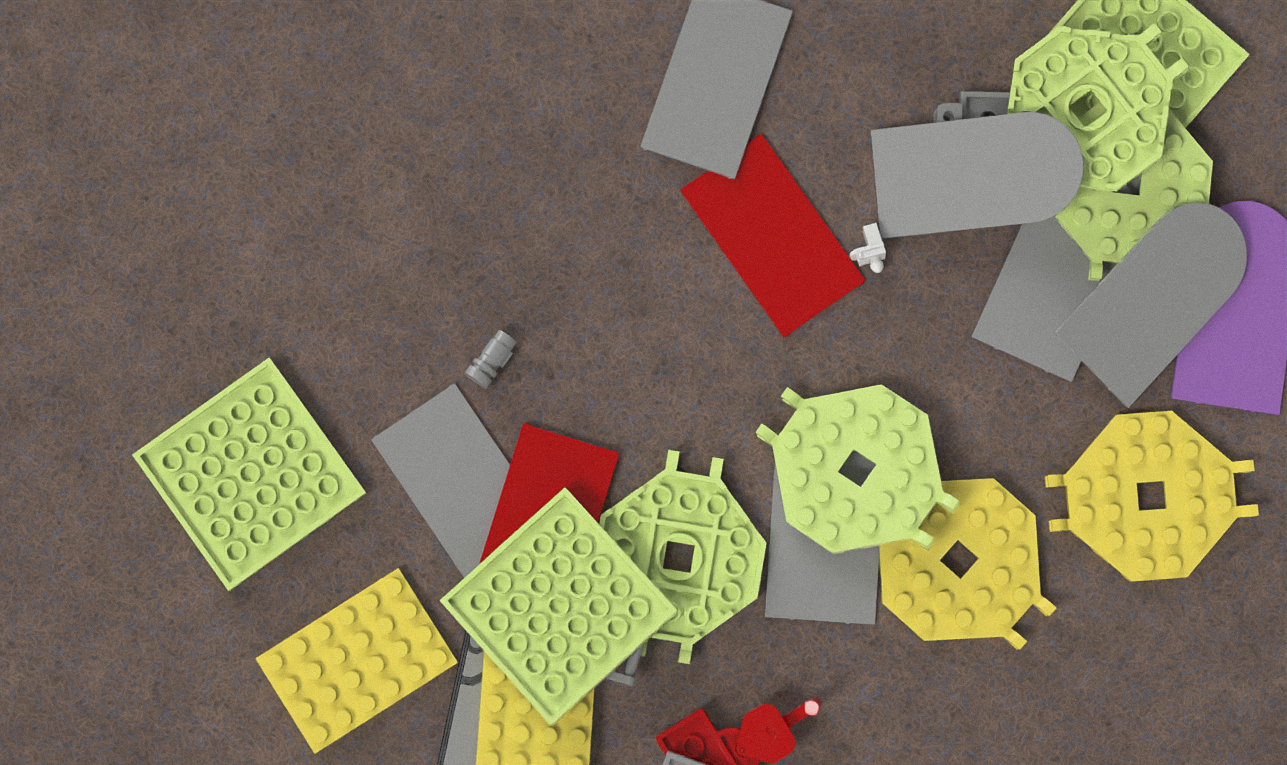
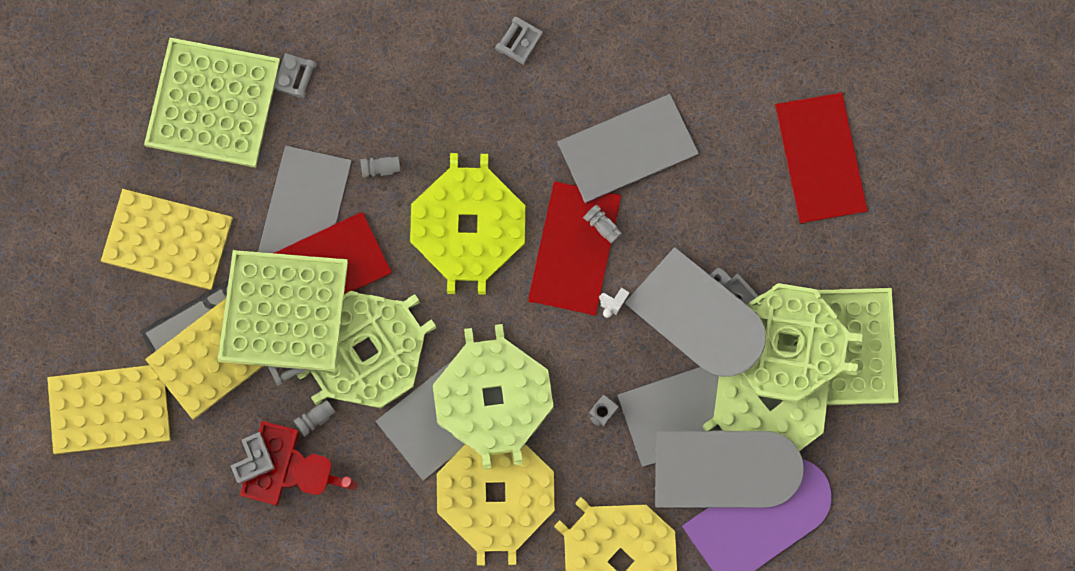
camera: 50 degrees right, 5 degrees down
(295, 364) = (289, 72): none -> light grey plate
(499, 82) = (524, 43): none -> light grey plate
(675, 353) = (467, 254): none -> neon yellow plate
(703, 674) = (316, 416): none -> light grey axle
(777, 182) = (602, 224): none -> light grey axle
(979, 356) = (605, 403): none -> light grey brick

